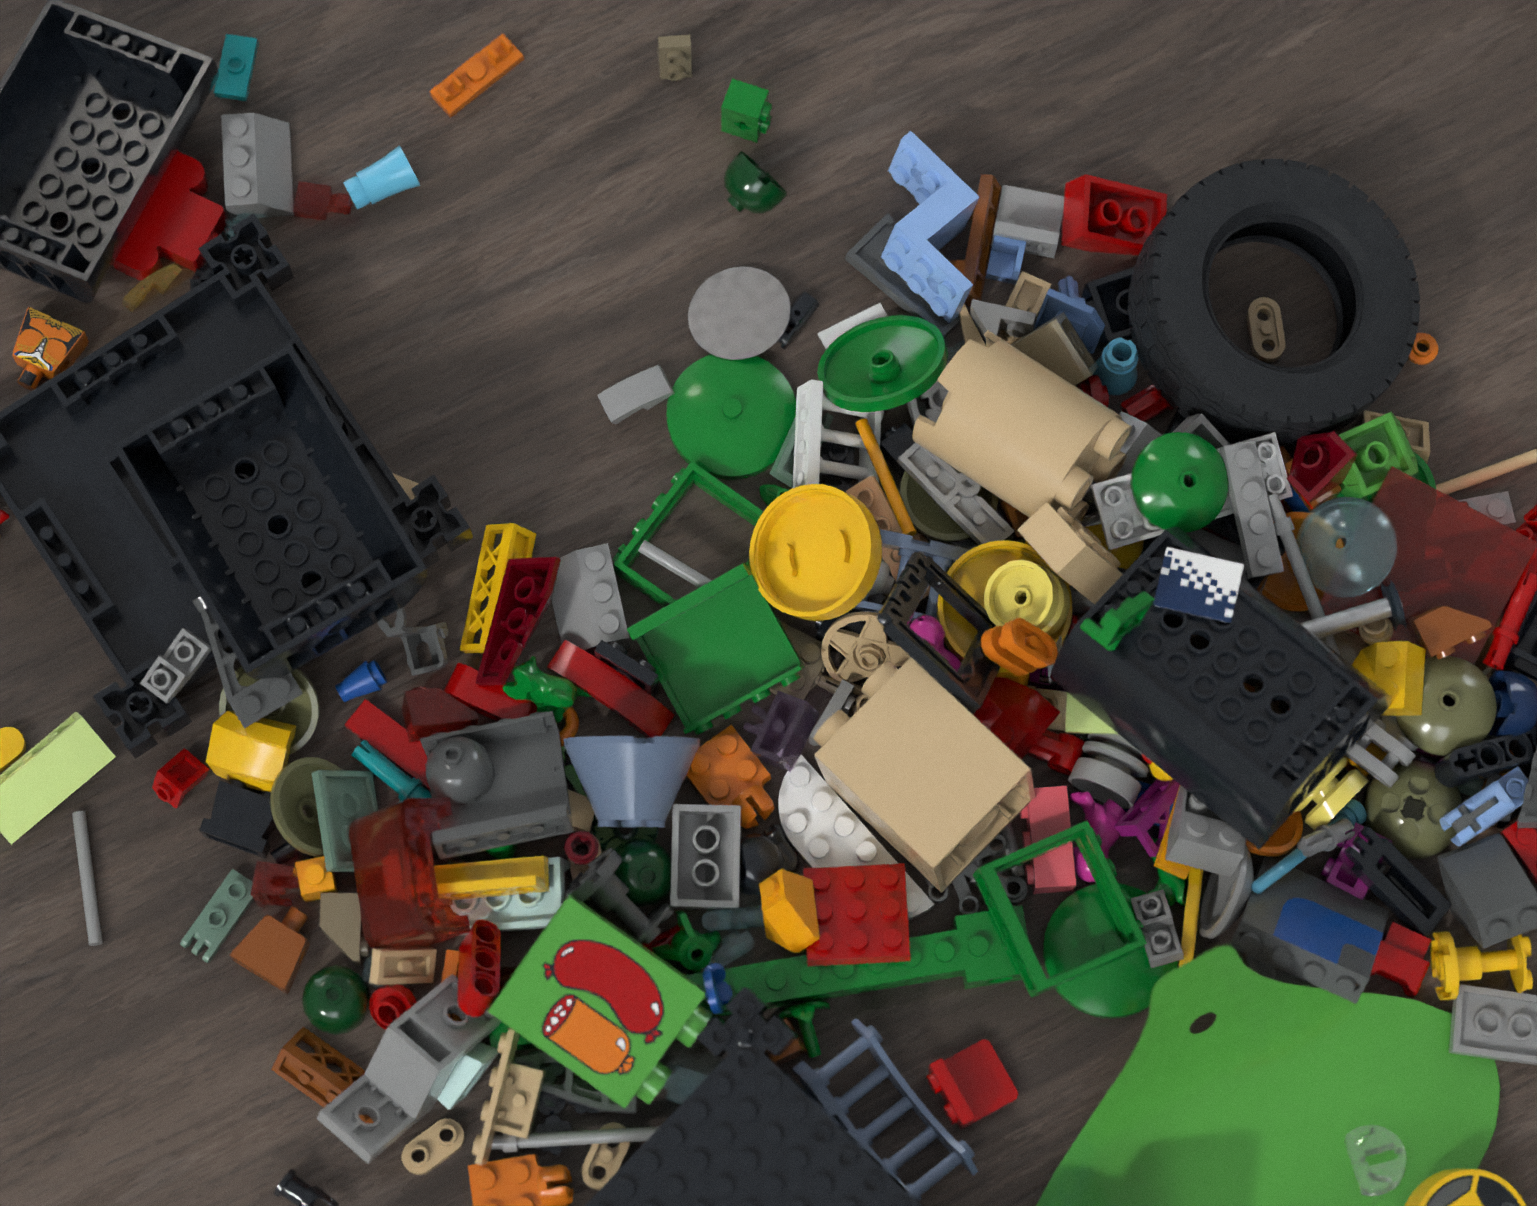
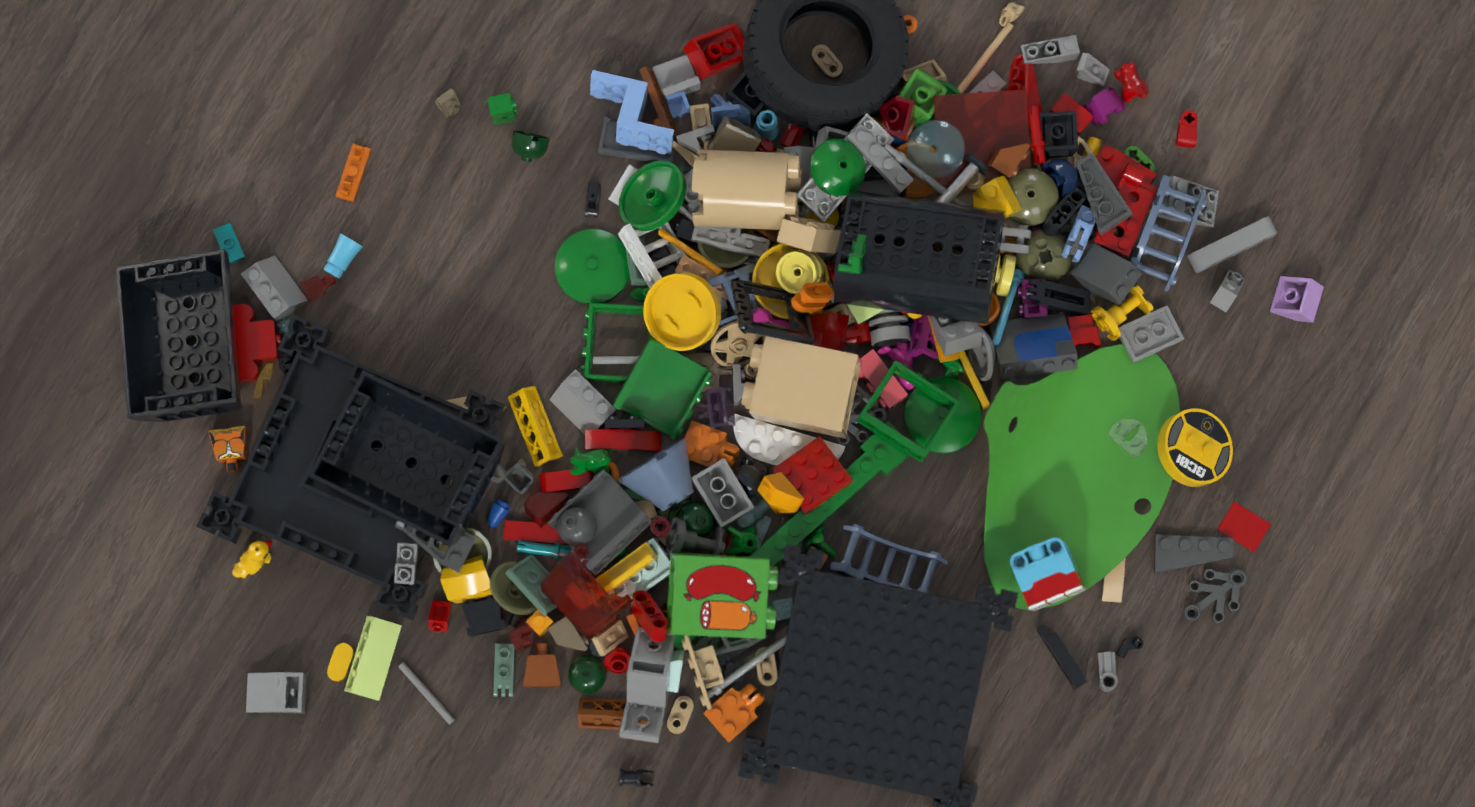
camera: 30 degrees left, 5 degrees up
(518, 611) = (552, 425): dark red wedge -> none
(634, 393) = (539, 285): light grey slope -> none
(716, 989) = (770, 553): blue piece -> none
(739, 313) = (563, 213): flat silver sticker -> none
(971, 1084) = (917, 521): red bracket -> none
(1158, 928) = (953, 384): light grey slope -> none
(1198, 584) = (881, 214): sticker -> none
(1326, 837) = (1013, 297): light grey axle -> none

